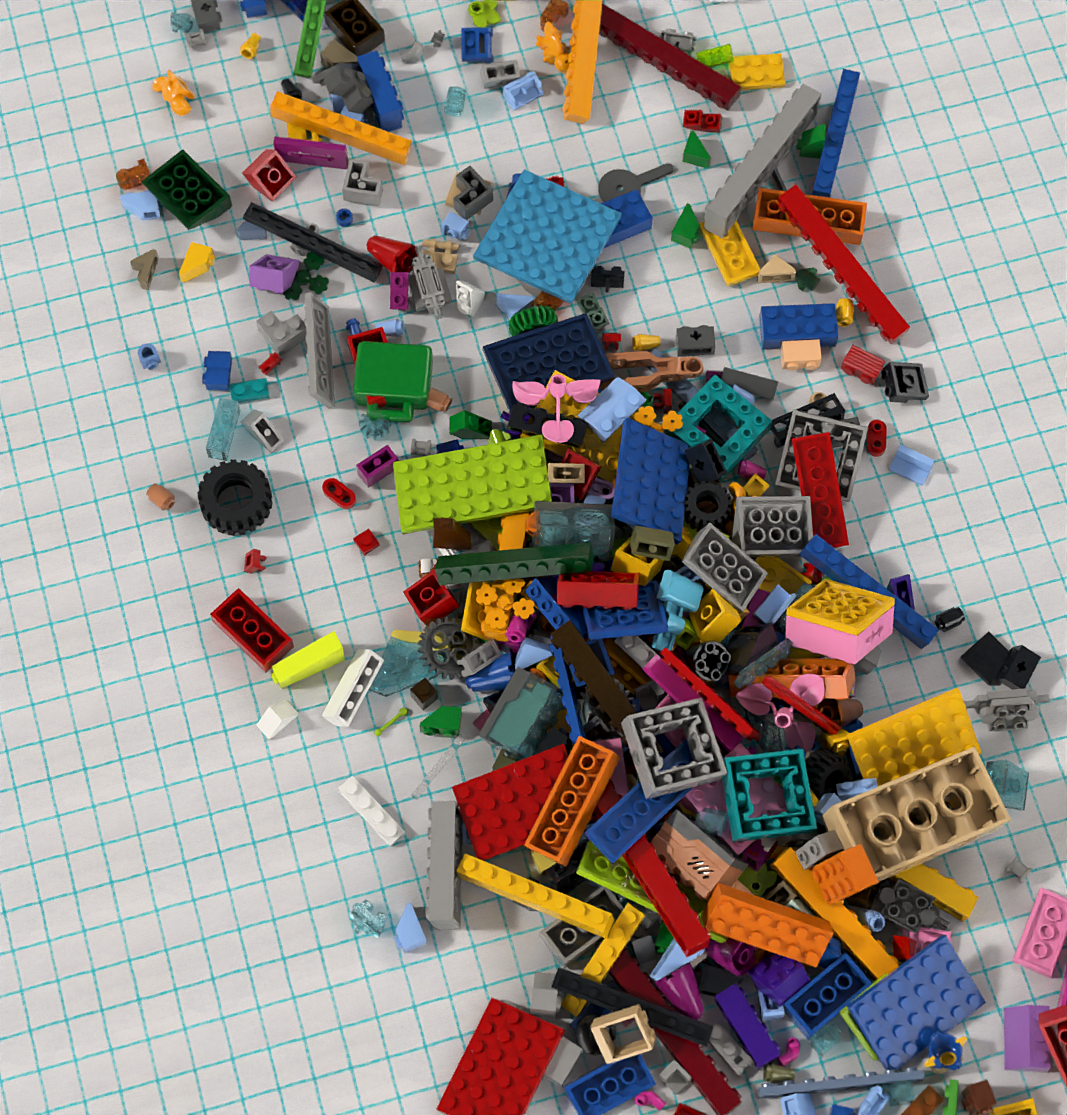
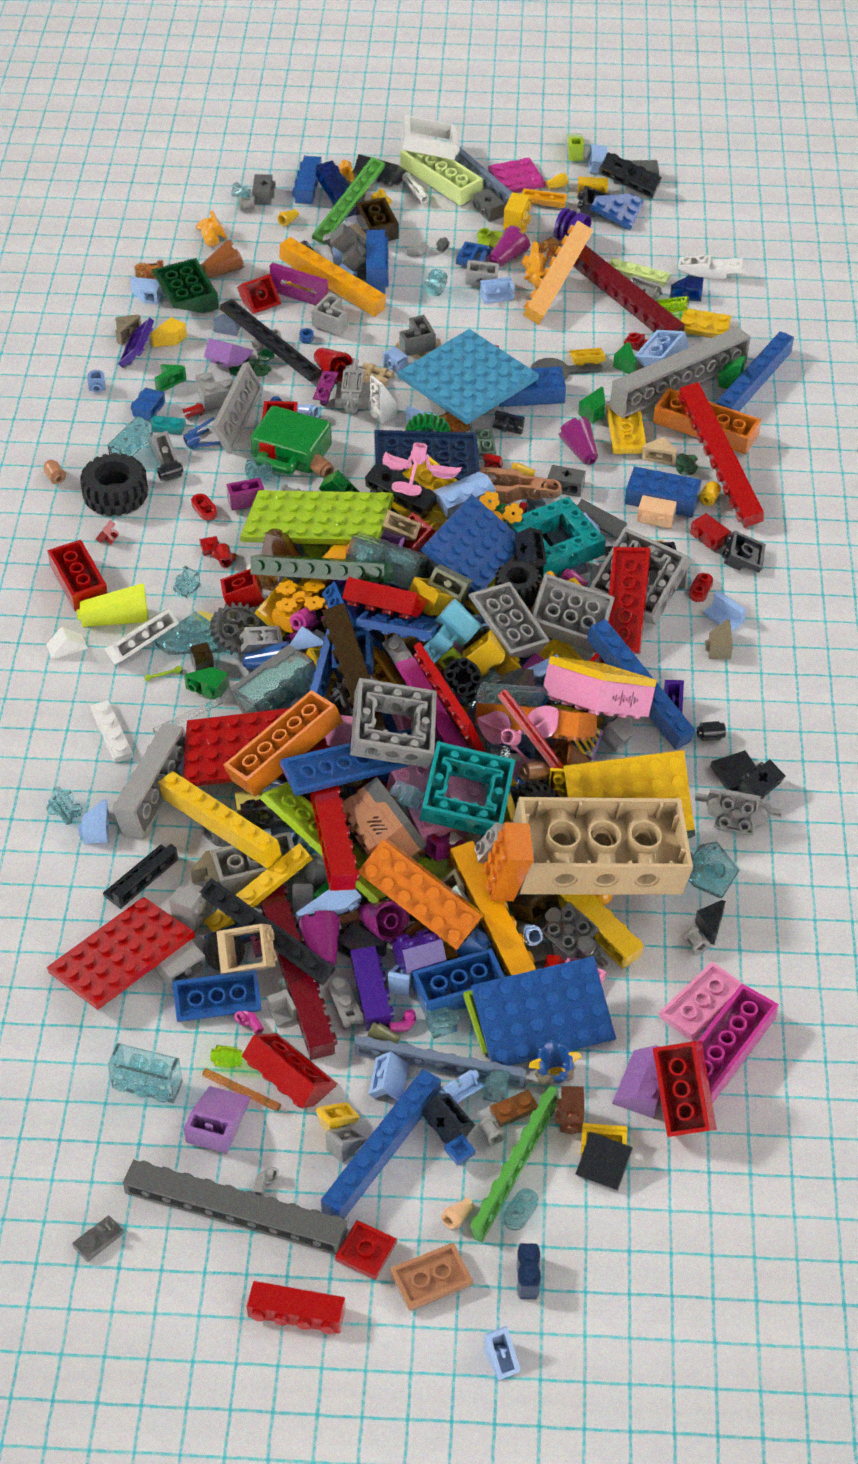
camera: 20 degrees right, 20 degrees down
(168, 290) = (136, 343): none -> dark purple plate
(209, 139) = (223, 261): none -> dark orange cone
(225, 324) = (170, 376): none -> green slope
(282, 456) = (170, 470): none -> black brick
(286, 403) = (192, 436): none -> blue plant
(365, 600) = (187, 582): none -> clear light blue brick
(387, 551) = (224, 555): none -> red piece
(482, 978) = (141, 875): none -> black fence
(513, 25) = (509, 246): none -> magenta cone
(540, 946) = (204, 869): none -> dark tan slope
(652, 157) = (591, 355): none -> yellow plate
(661, 16) = (631, 269): none -> yellowish green plate
(692, 284) = (580, 439): none -> magenta cone
(724, 28) = (688, 286): none -> clear blue slope
(730, 130) = (661, 345): none -> light blue slope
(812, 738) = (534, 771): none -> nougat brick
(921, 506) = (720, 642): none -> dark tan slope
(1025, 844) = (709, 920): none -> black slope

